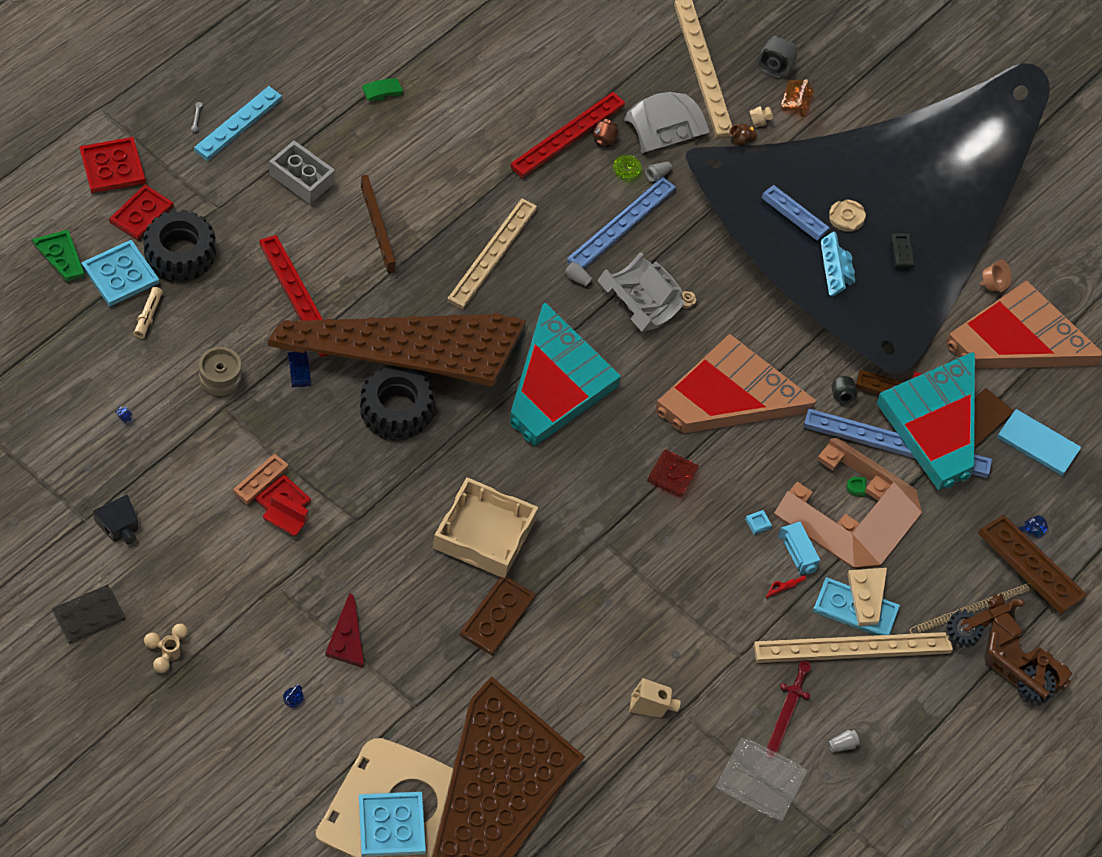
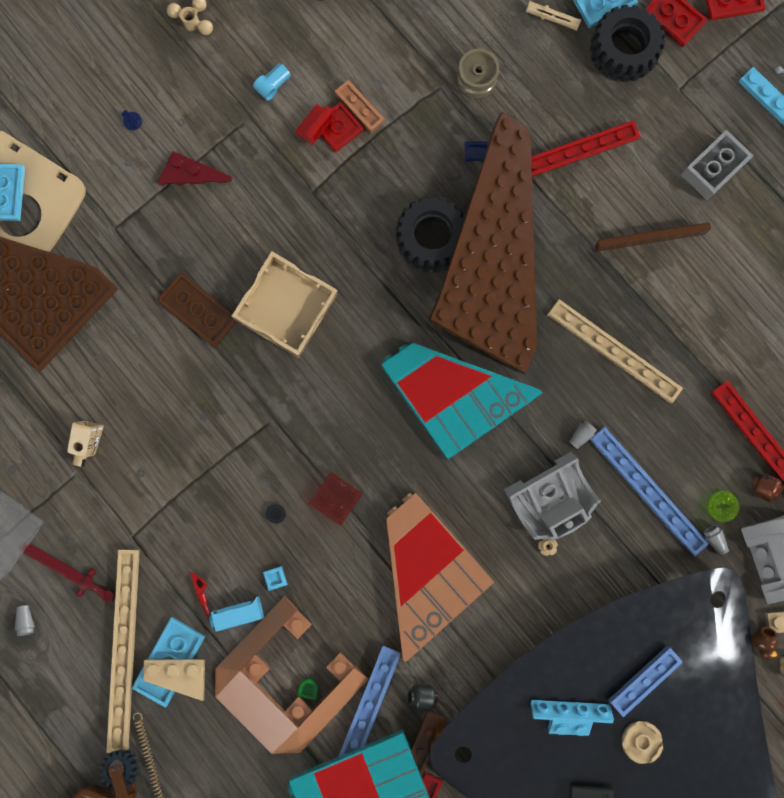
camera: 105 degrees right, 25 degrees up
(242, 565) = (268, 85): none -> medium azure piece
(695, 526) = (276, 513): none -> black tile

